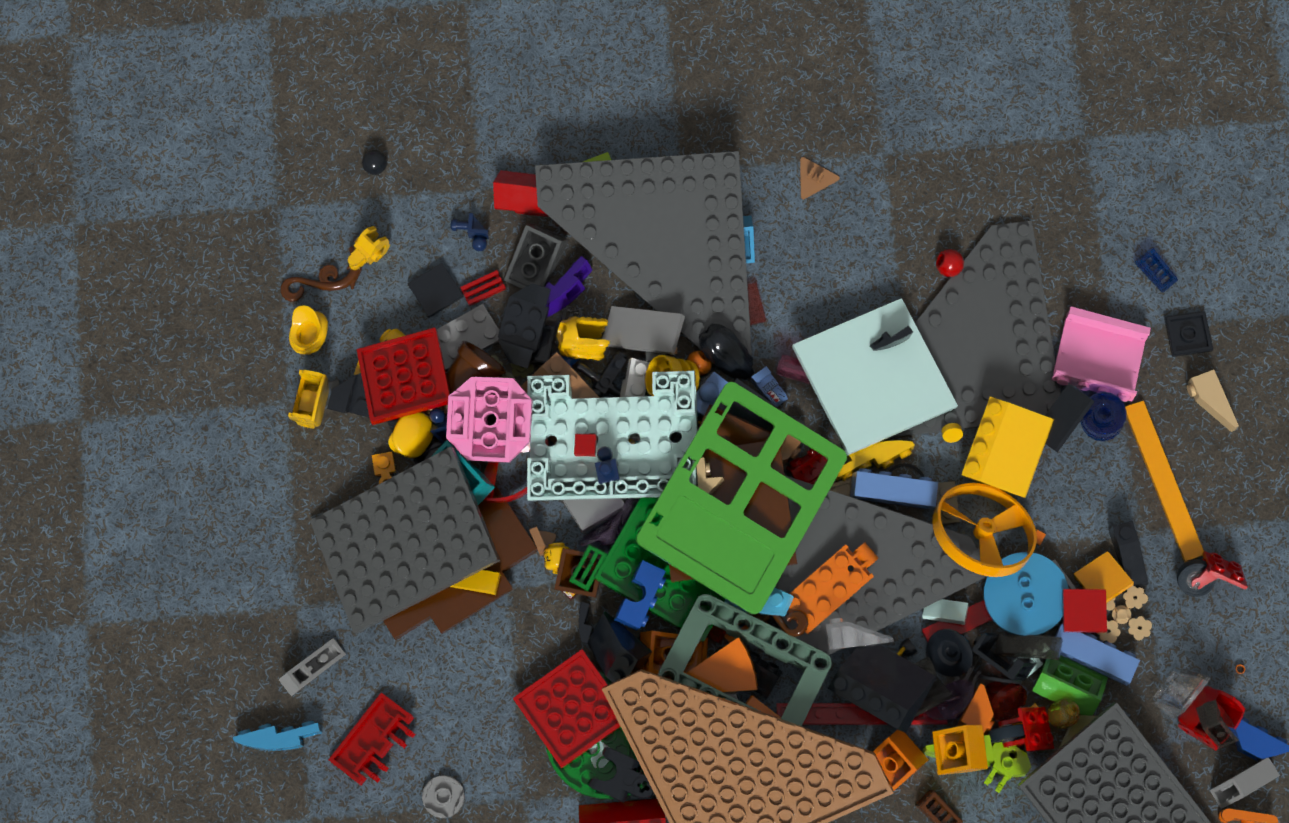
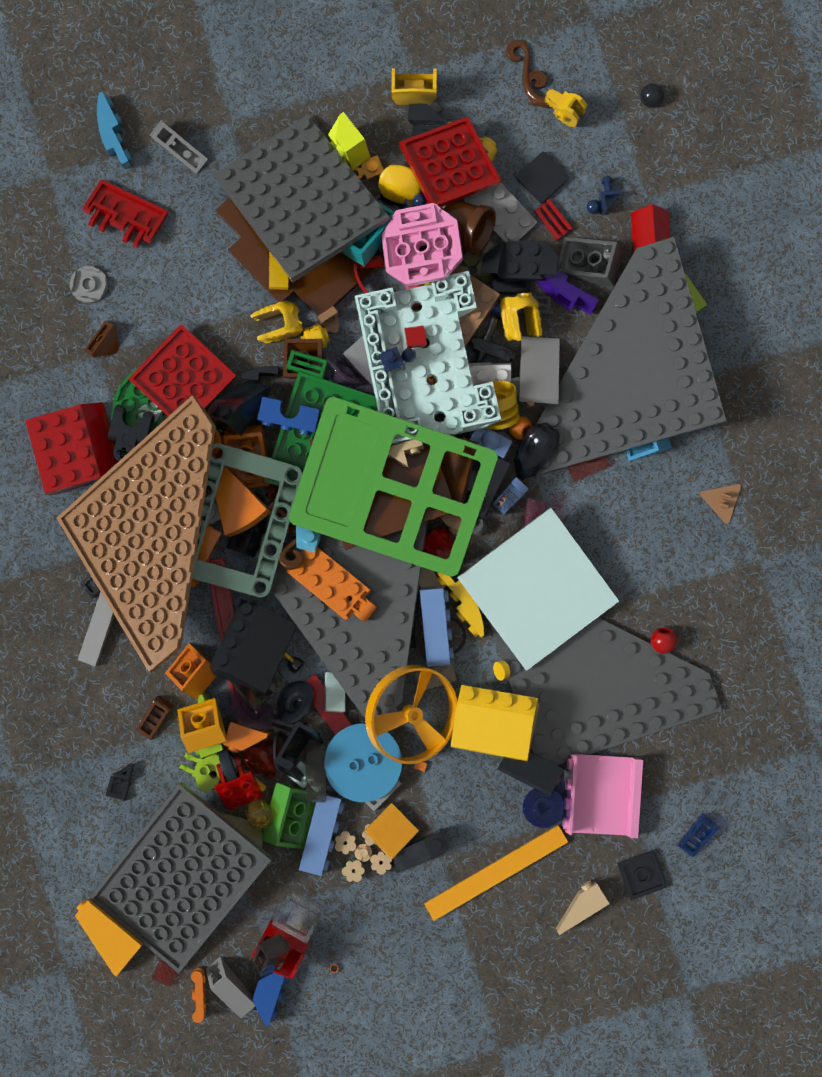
camera: 80 degrees right, 10 degrees up
(313, 330) = (485, 76): yellow piece -> none
(352, 479) = (348, 142): none -> neon yellow slope
(511, 791) = (104, 341): none -> reddish brown slope
(523, 578) = (292, 324): none -> yellow piece
(848, 635) = (289, 612): clear slope -> none
(887, 342) = (571, 593): black slope -> none
(1084, 610) = (355, 818): red tile -> none
(1199, 576) = (410, 919): plate -> none

